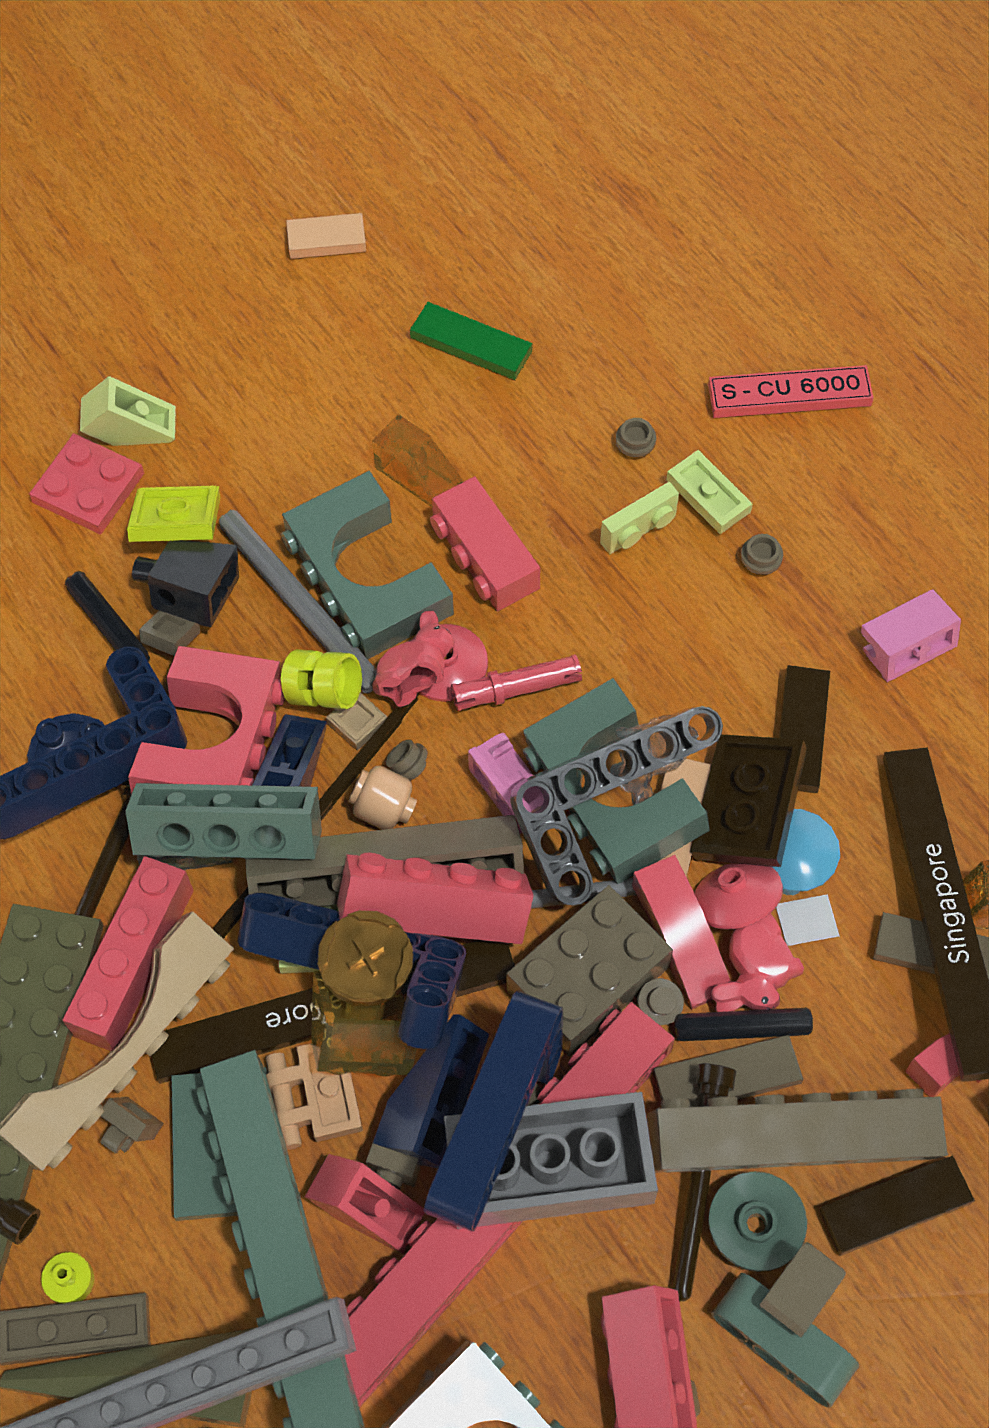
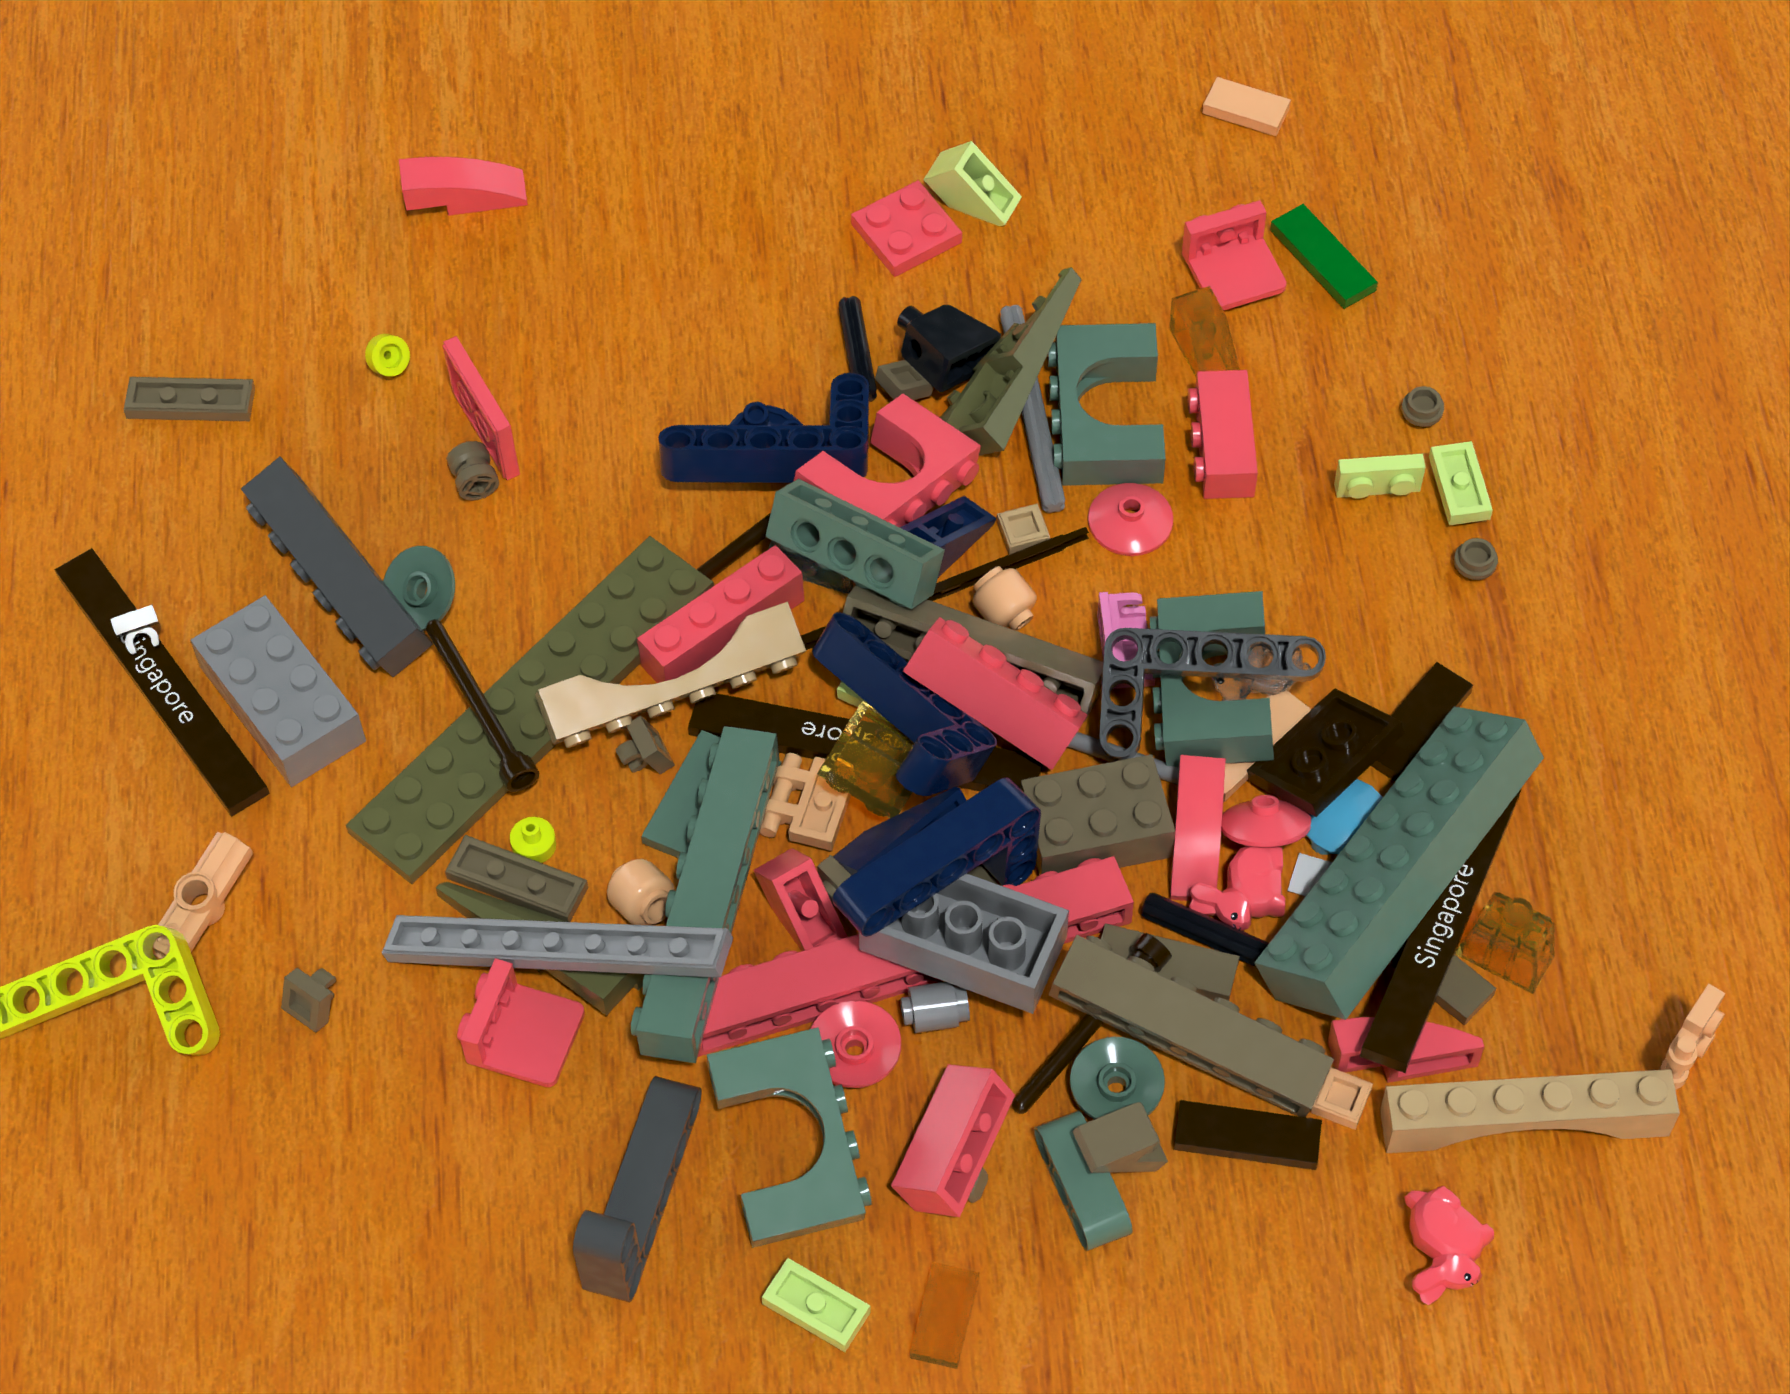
camera: 30 degrees right, 5 degrees down
(174, 513) = (965, 285): neon yellow tile -> none
(207, 1279) = (639, 892): none -> light nougat head
(261, 583) = (1007, 373): none -> olive wedge
(321, 679) = (1009, 477): neon yellow wheel -> none
(365, 958) = (905, 702): pearl gold tile -> none
(396, 378) = (1232, 255): none -> coral bracket
(407, 759) = (1046, 579): dark tan plate -> none
(414, 663) = (1097, 500): coral animal -> none
(505, 685) = (1180, 562): coral pin -> none
(505, 1296) = (862, 1026): none -> coral dish
(550, 1242) = (935, 1007): none -> light grey brick
(660, 1000) = (1144, 874): dark tan plate -> none
(790, 391) = (1598, 432): coral tile -> none
(878, 876) = (1399, 862): none -> sand green brick
(911, 635) = (1569, 690): bright pink hinge -> none
(961, 1121) = (1342, 1098): none -> light nougat tile

